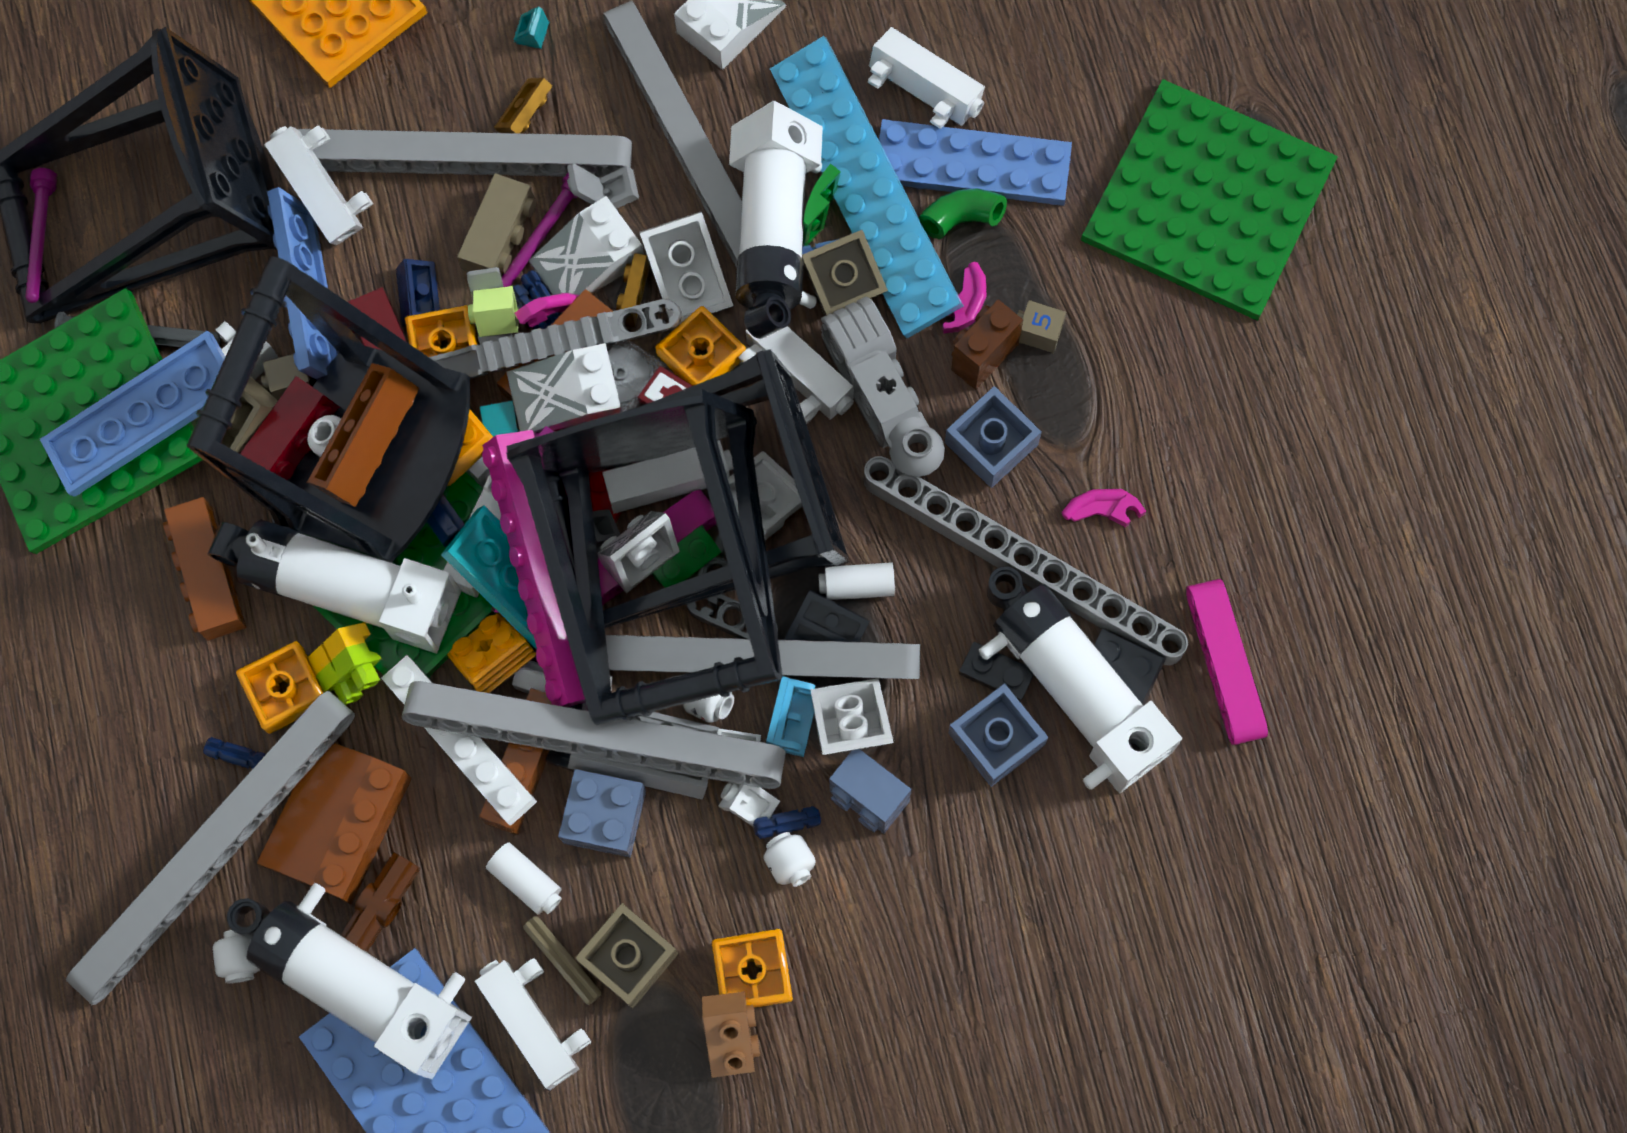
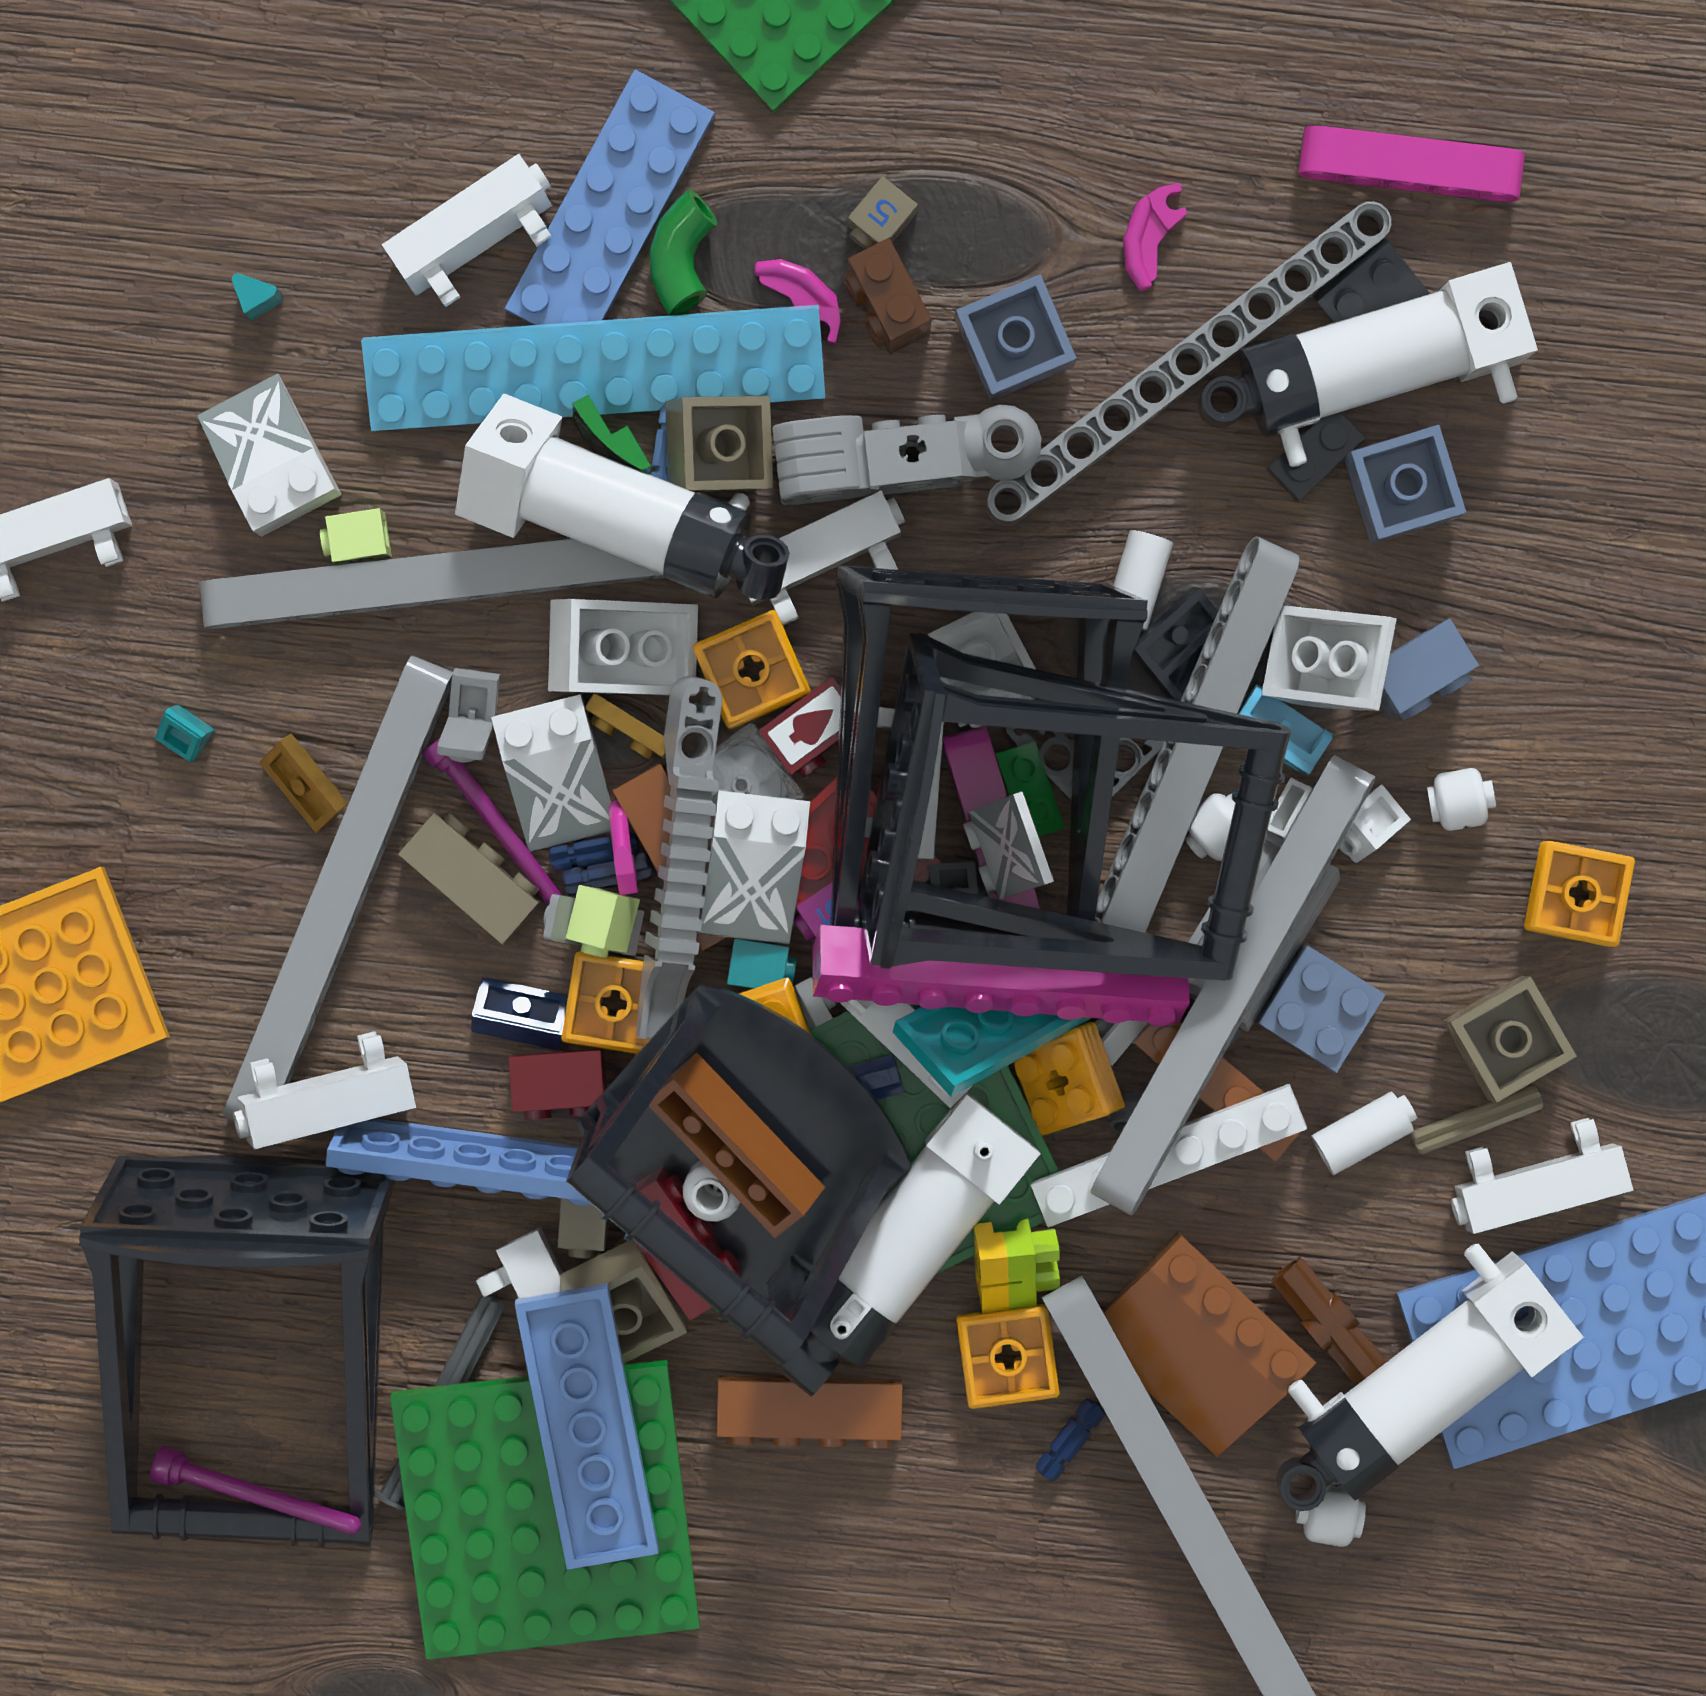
camera: 75 degrees left, 15 degrees up
(697, 82) = (356, 537): none -> yellowish green brick
(728, 1034) = (1651, 947): medium nougat brick -> none
(787, 822) = (1413, 785): dark blue axle -> none

